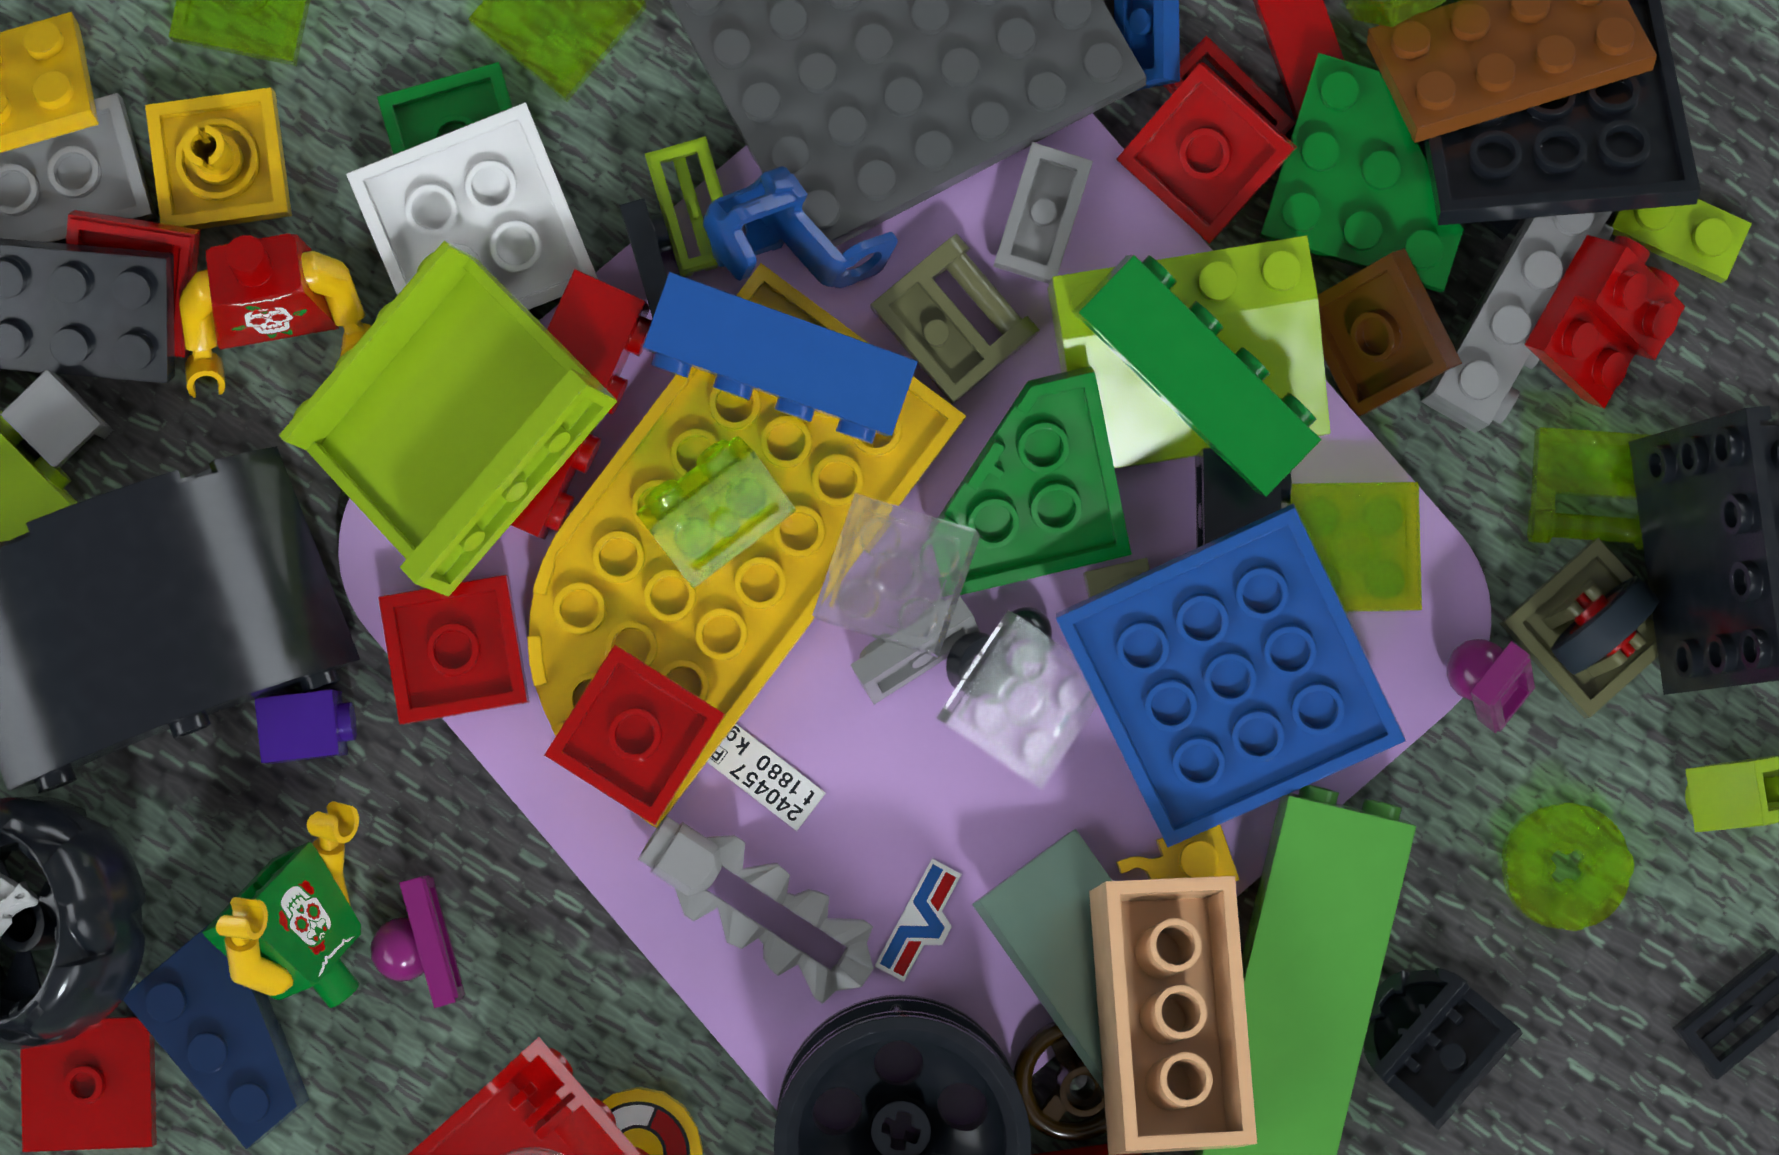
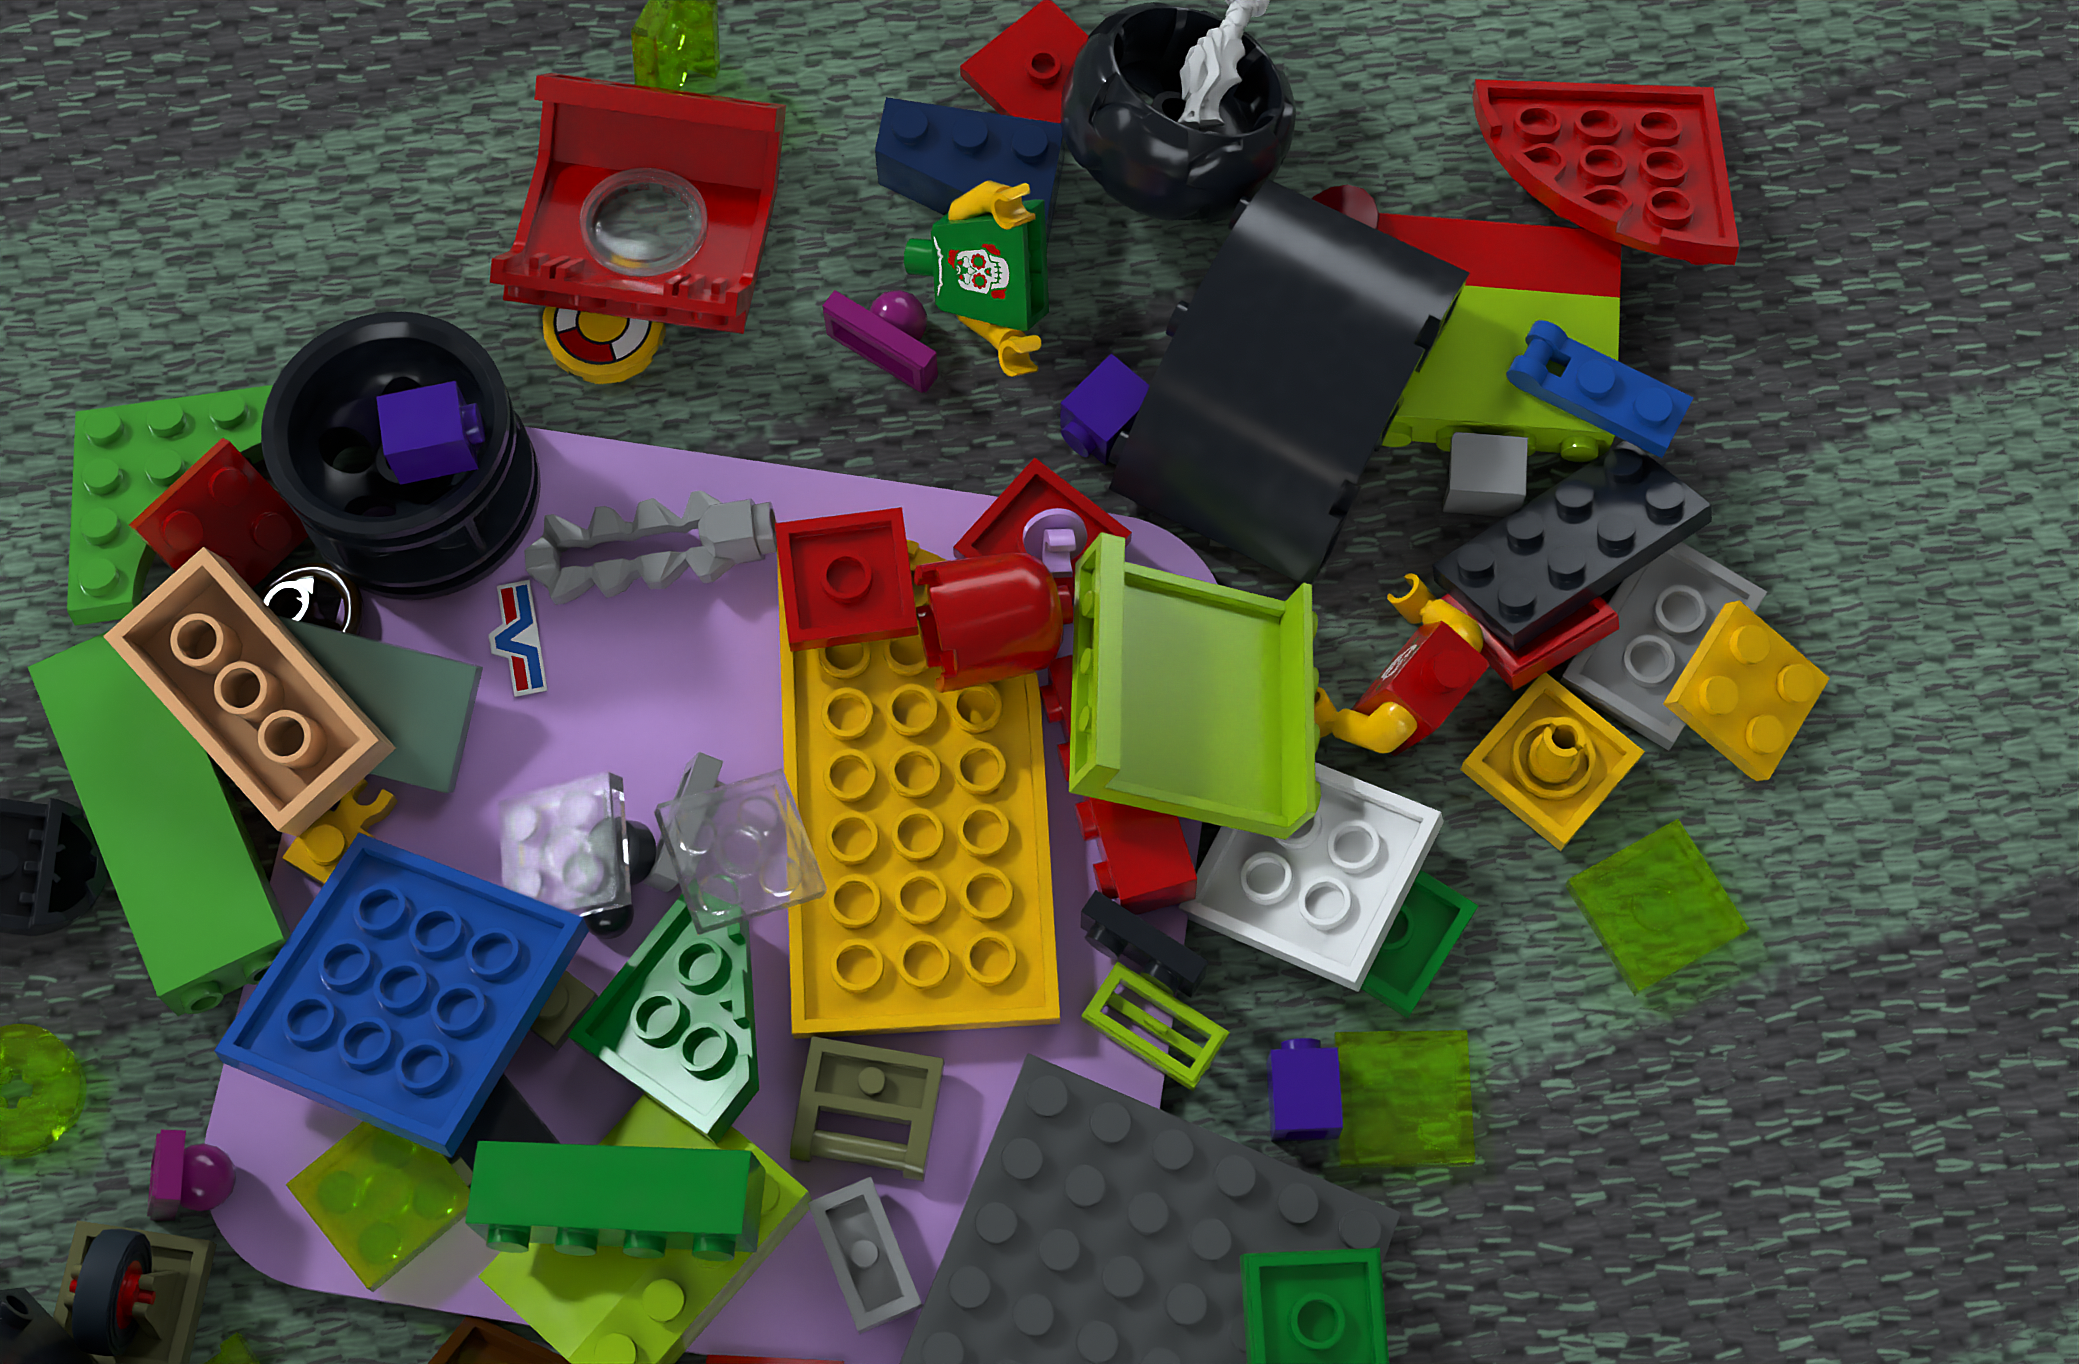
camera: 150 degrees right, 15 degrees down
(446, 629) = (1055, 539): none -> lavender plate
(556, 597) = (990, 618): none -> red cylinder
(626, 71) = (1304, 1091): none -> dark purple brick
(714, 509) = (929, 789): clear neon green bracket -> none
(766, 777) = (725, 648): white sticker -> none
(775, 216) = (1083, 1060): blue piece -> none
(779, 356) = (973, 935): blue brick -> none
(877, 1088) = (429, 432): none -> dark purple brick

